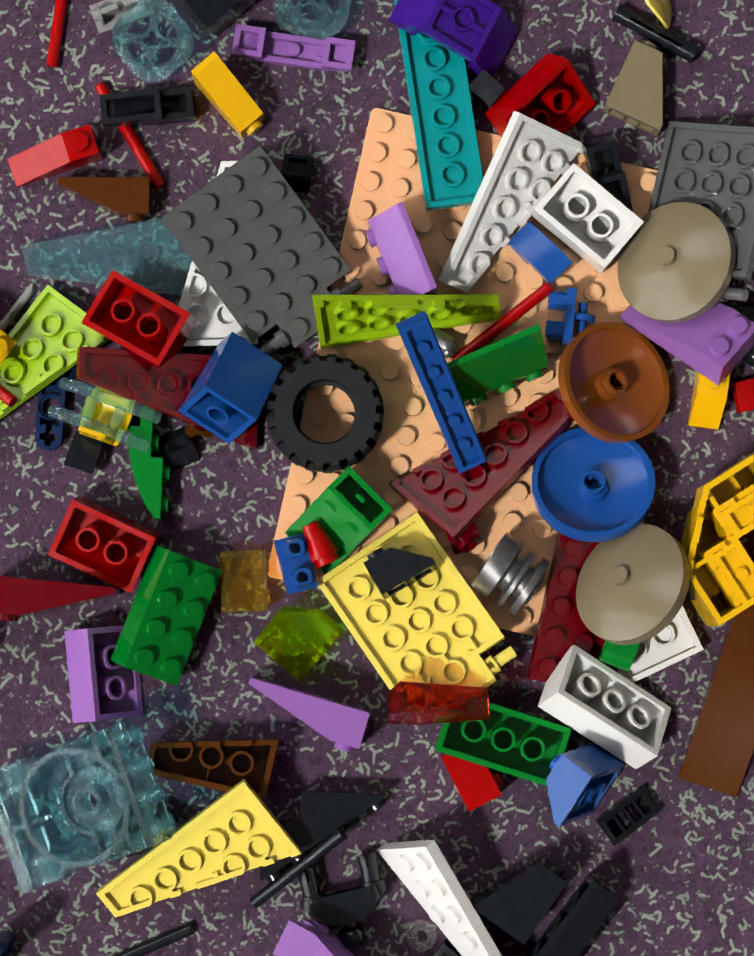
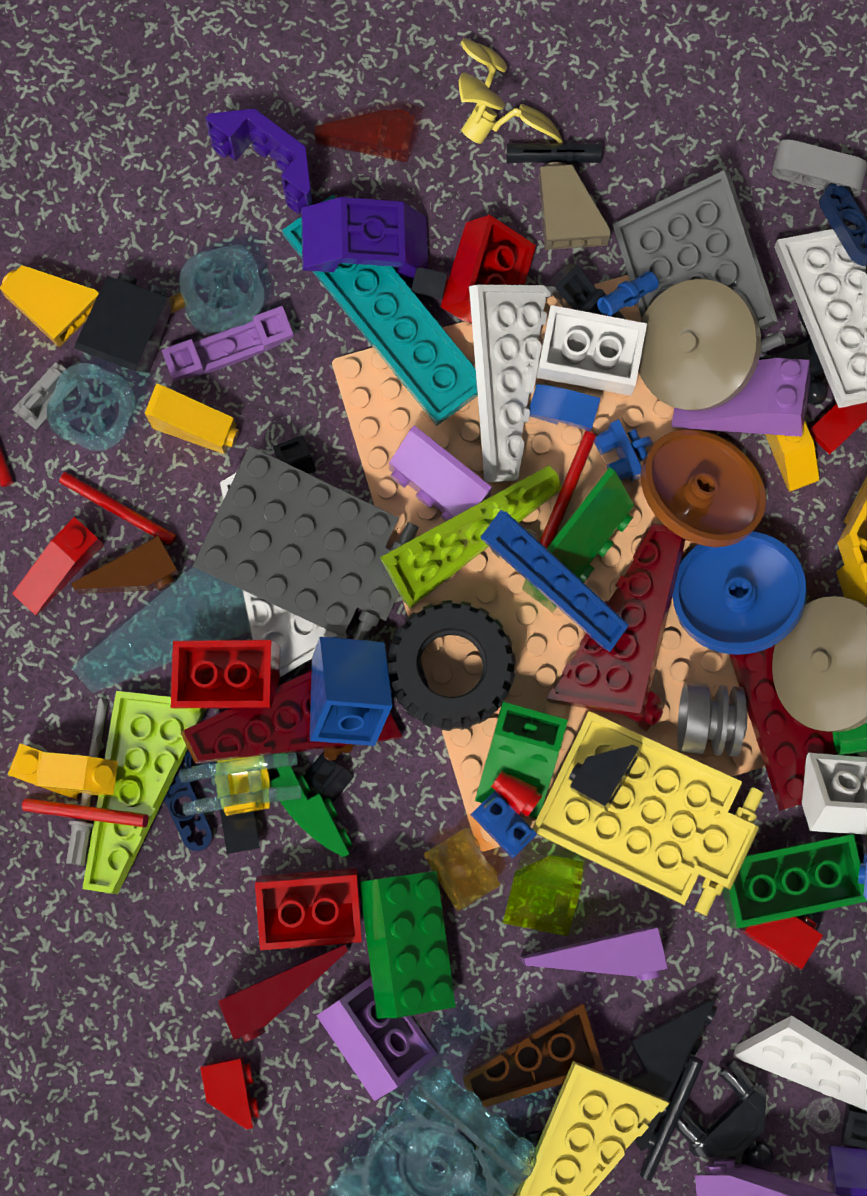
camera: 30 degrees left, 5 degrees down
(148, 107) = (121, 472): black slope -> none
(436, 703) = (717, 882): clear red slope -> none
(644, 188) = (628, 293): none -> blue pin

